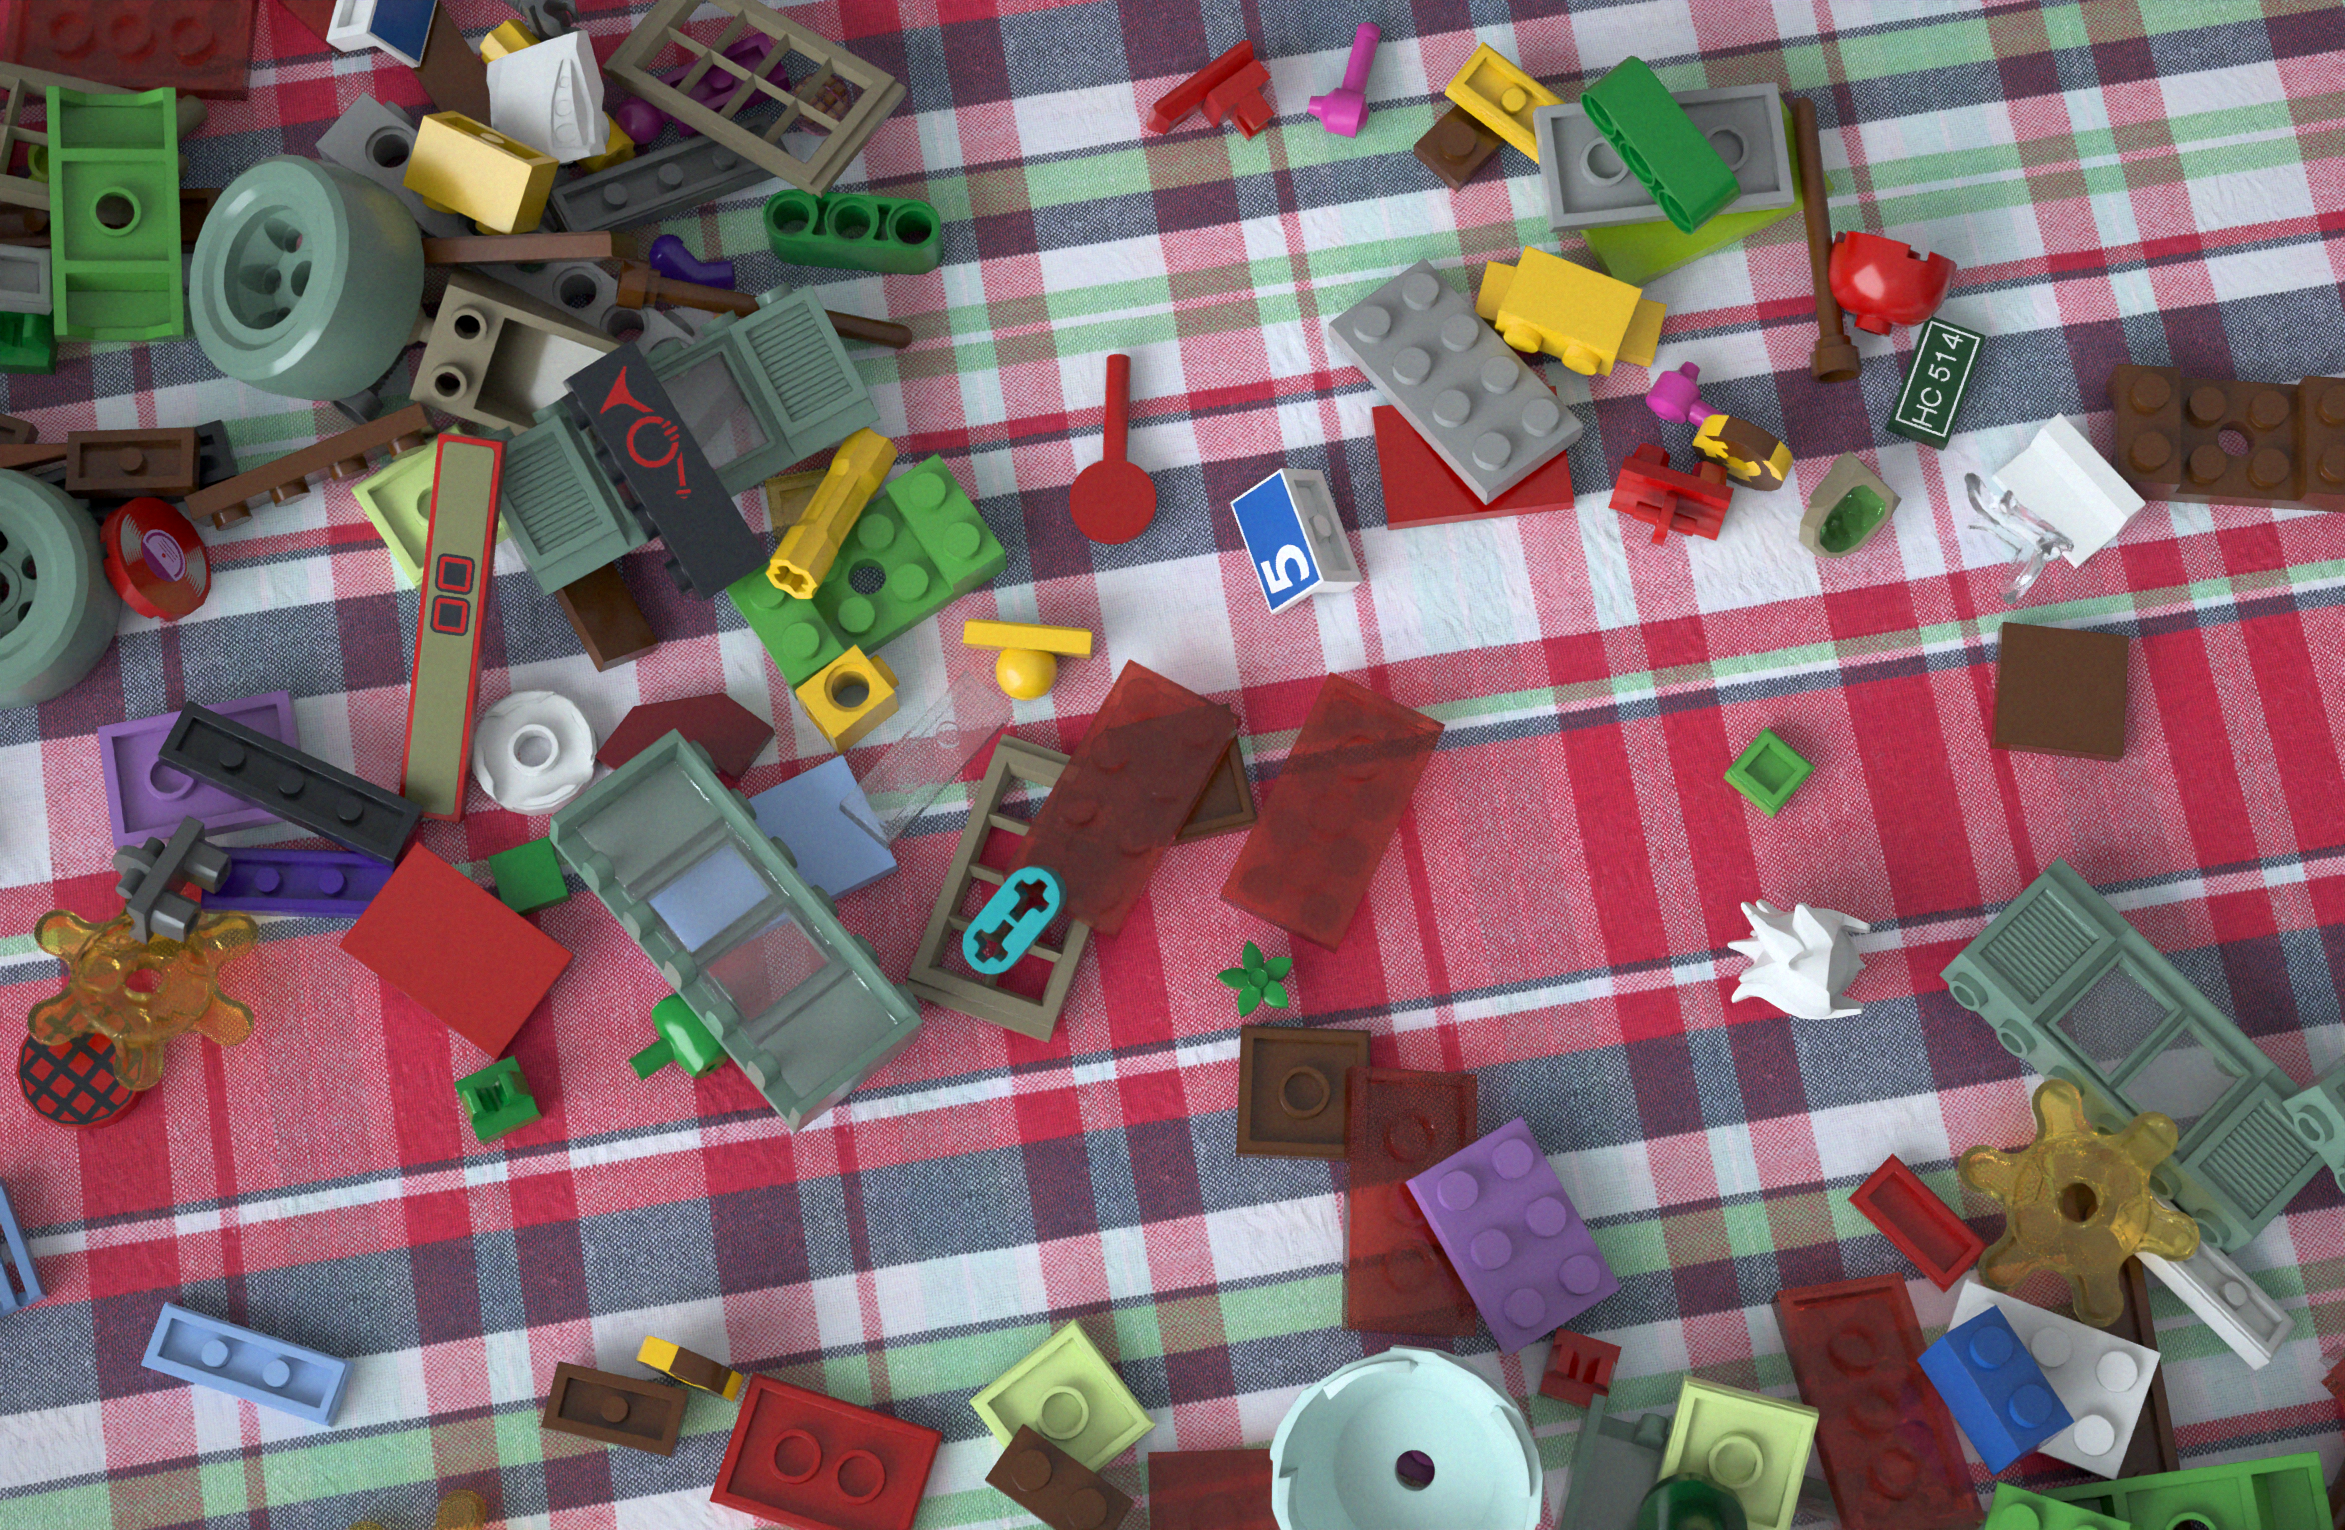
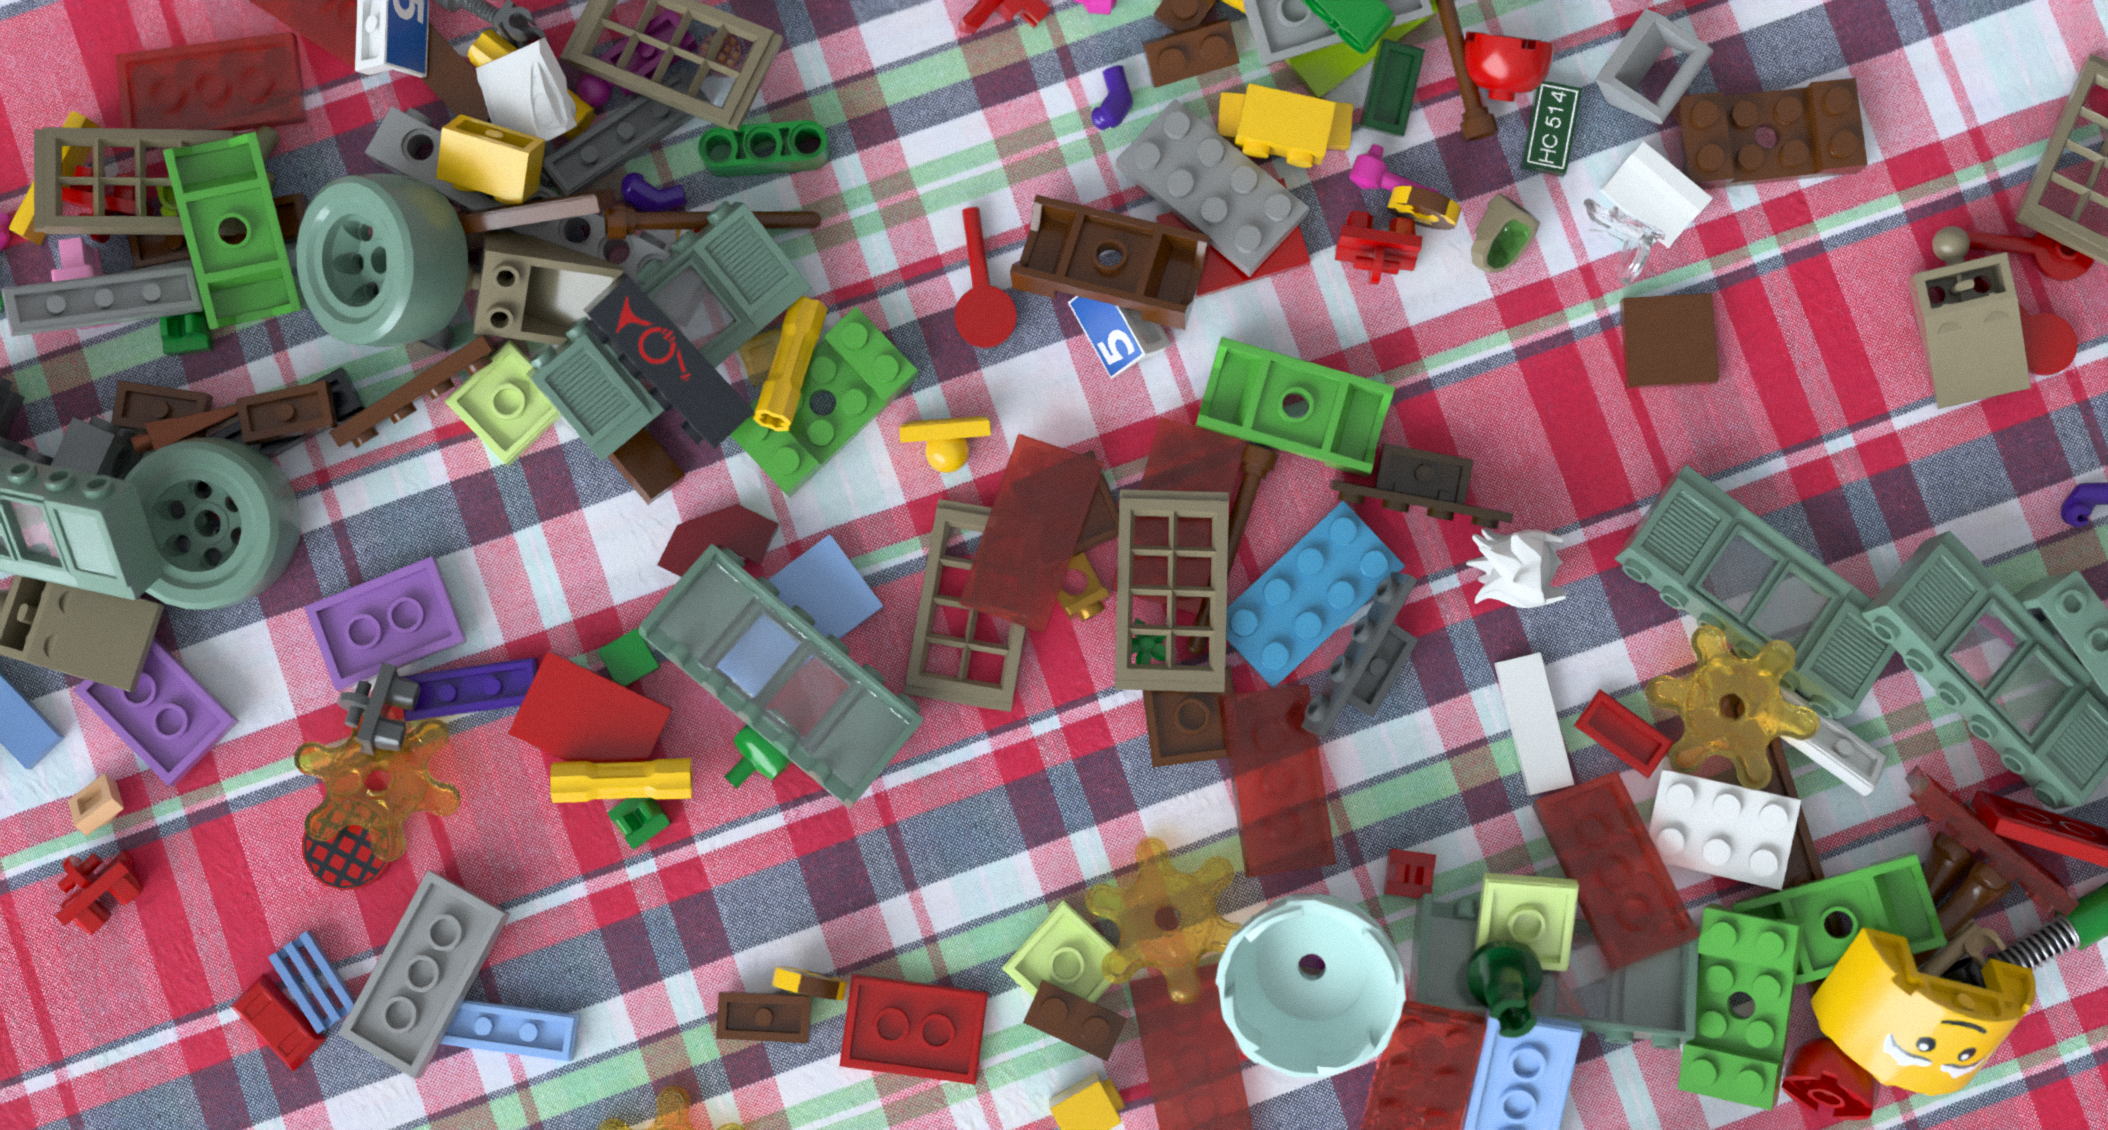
camera: 10 degrees left, 10 degrees up
(147, 1263) = (424, 974): none -> light grey plate
(156, 559) = (318, 479): red tile -> none
(291, 784) = (449, 625): black plate -> none
(452, 624) = (539, 495): olive tile -> none
(483, 1036) = (614, 780): none -> yellow axle
(540, 787) = (588, 560): white tile -> none
(842, 724) = (827, 513): yellow brick -> none
(926, 760) = (889, 527): clear tile -> none
(1003, 909) = (964, 629): teal beam -> none
(1185, 1403) = (1134, 911): none -> clear yellow plate
(1187, 907) = (1091, 600): none -> pearl gold bracket
(1281, 1026) = (1172, 676): none -> dark tan piece
(1343, 252) = (1117, 102): none -> dark purple arm
(1355, 474) = (1156, 271): none -> reddish brown piece
(1453, 762) = (1255, 466): none -> reddish brown piece
(1455, 202) = (1190, 52): none -> reddish brown plate
(1496, 952) = (1308, 594): none -> dark azure plate
(1513, 1236) = (1351, 793): medium lavender plate -> none
(1571, 1055) = (1369, 662): none -> dark grey bracket
(1576, 725) = (1248, 397): none -> bright green piece
(1684, 820) = (1422, 480): none -> dark brown bracket
(1723, 293) = (1391, 88): none -> dark green tile
(1769, 772) = (1475, 433): bright green tile -> none
(1791, 1187) = (1534, 724): none -> white tile
(1995, 1390) = (1694, 848): blue brick -> none
(2069, 304) = (1638, 54): none -> light grey tile

